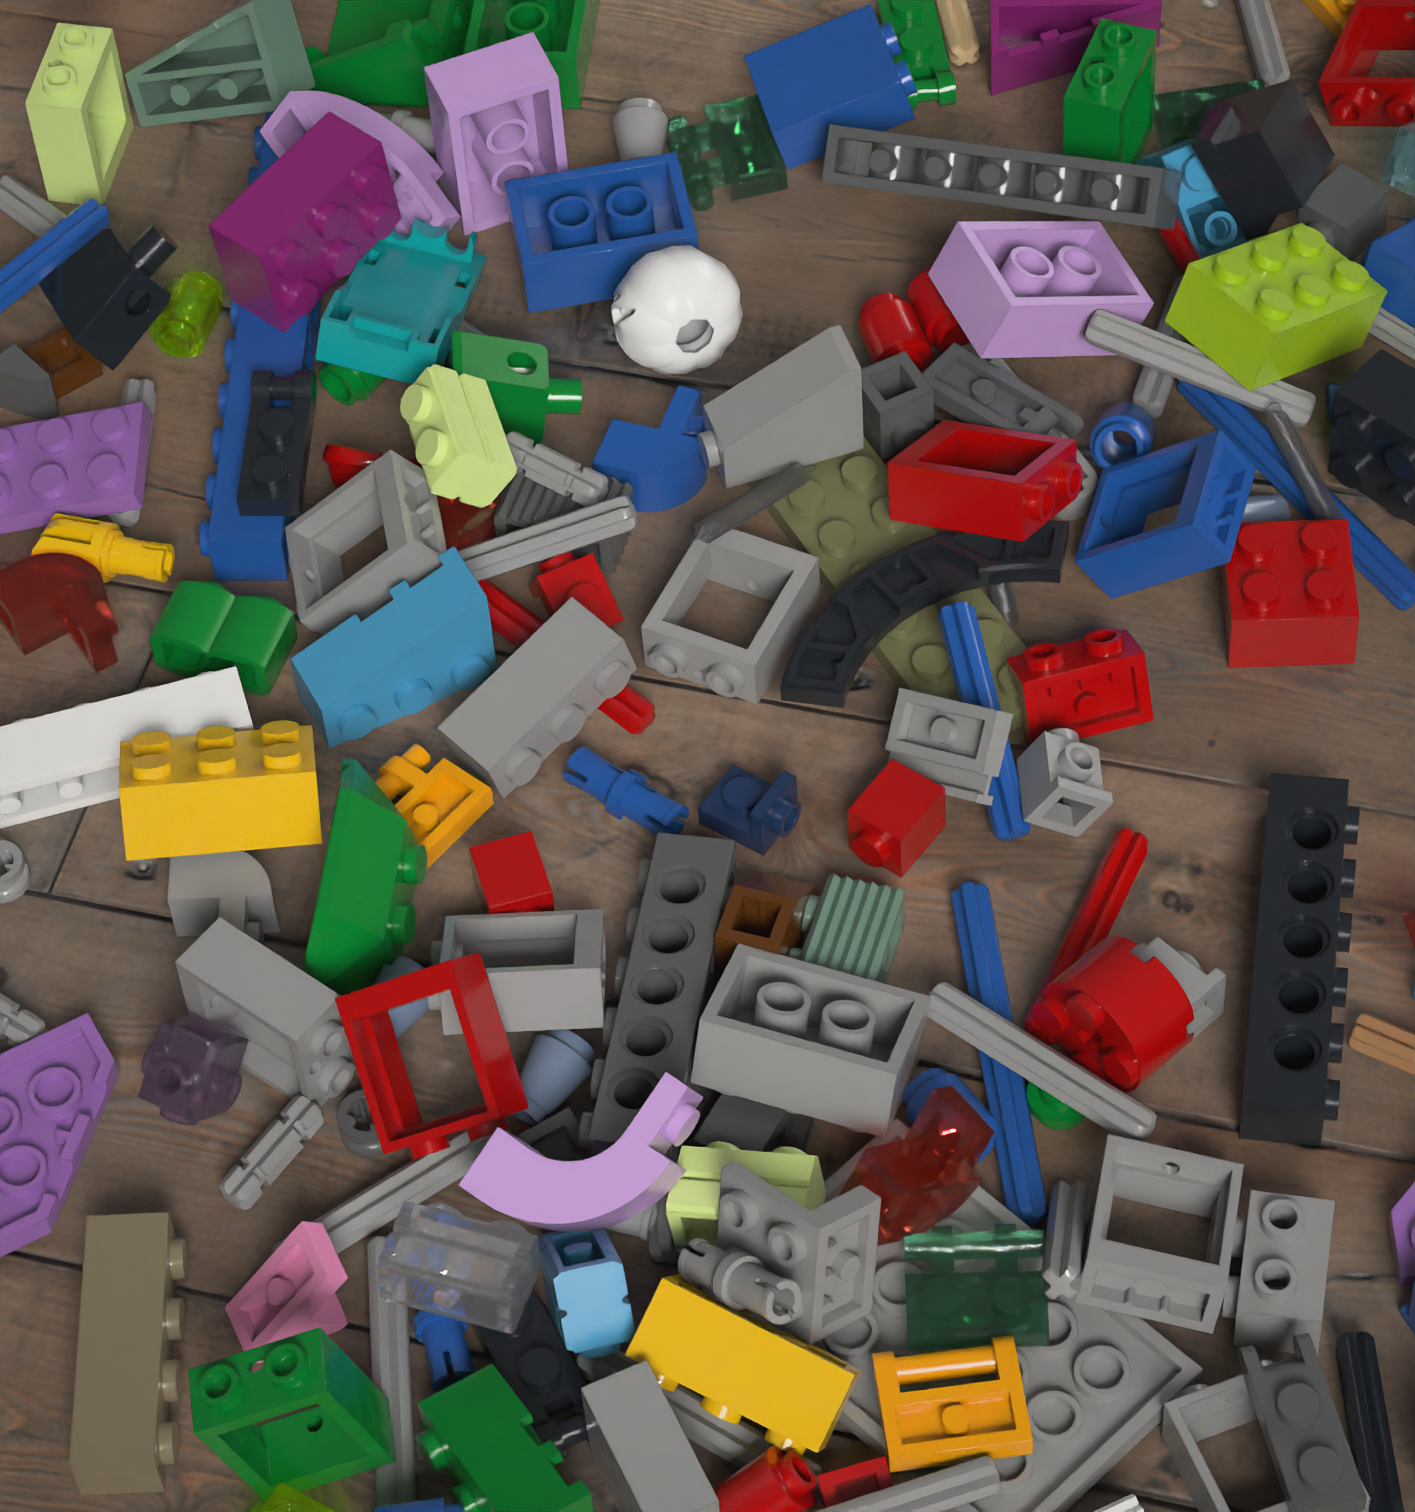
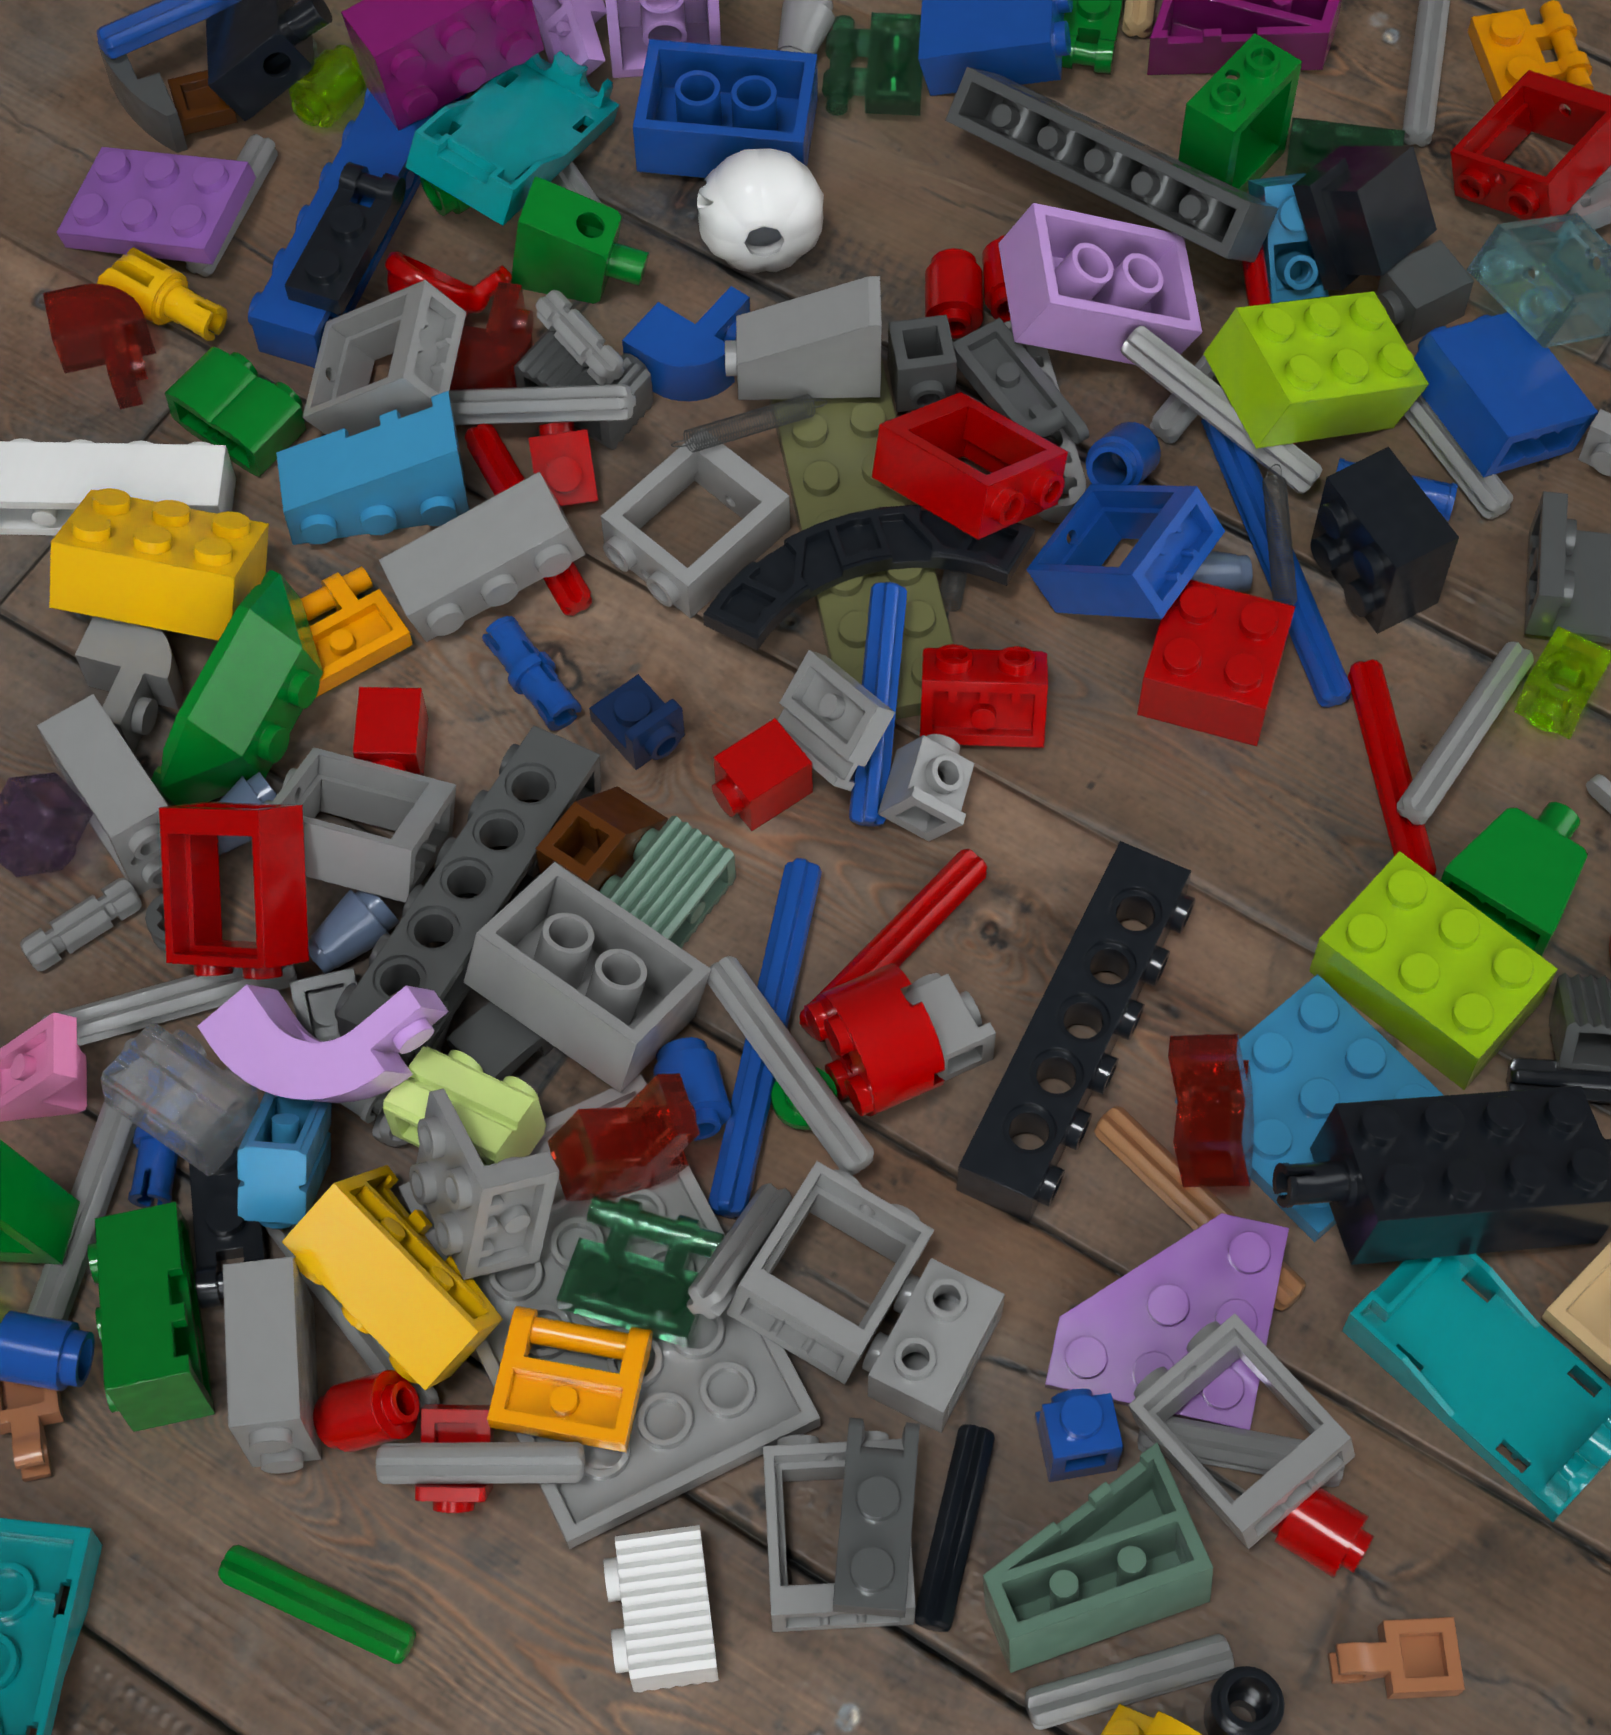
camera: 15 degrees right, 10 degrees up
(458, 436) = (499, 281): yellowish green brick -> none
(739, 1281) = (410, 1205): light grey pin -> none

